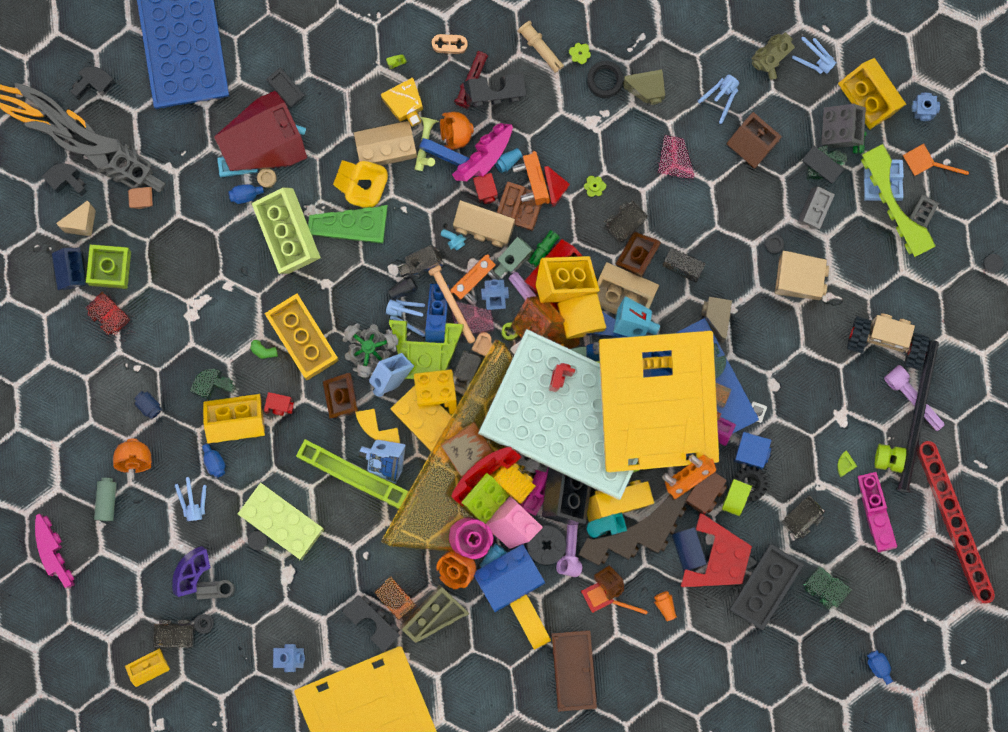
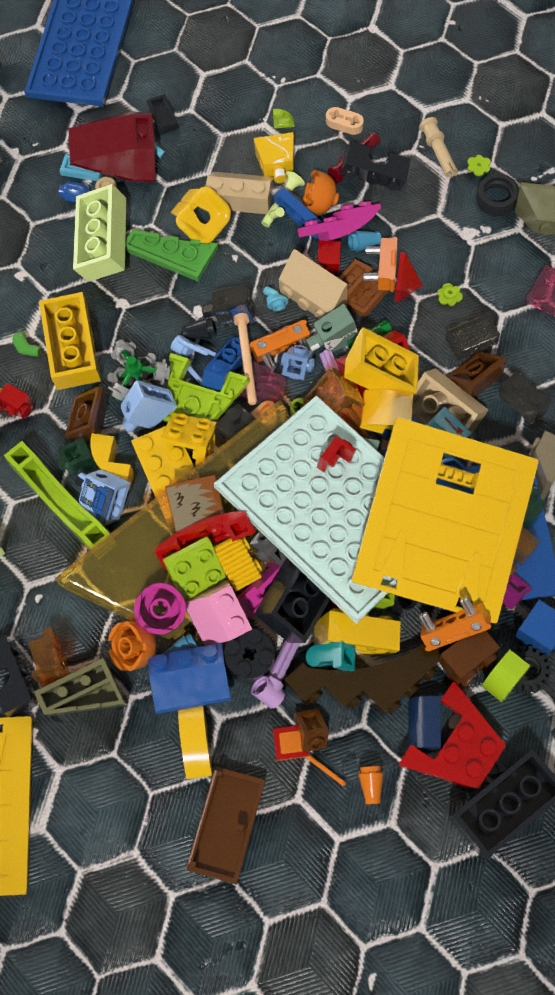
camera: 25 degrees right, 15 degrees down
(351, 427) = (75, 456): none -> clear green brick

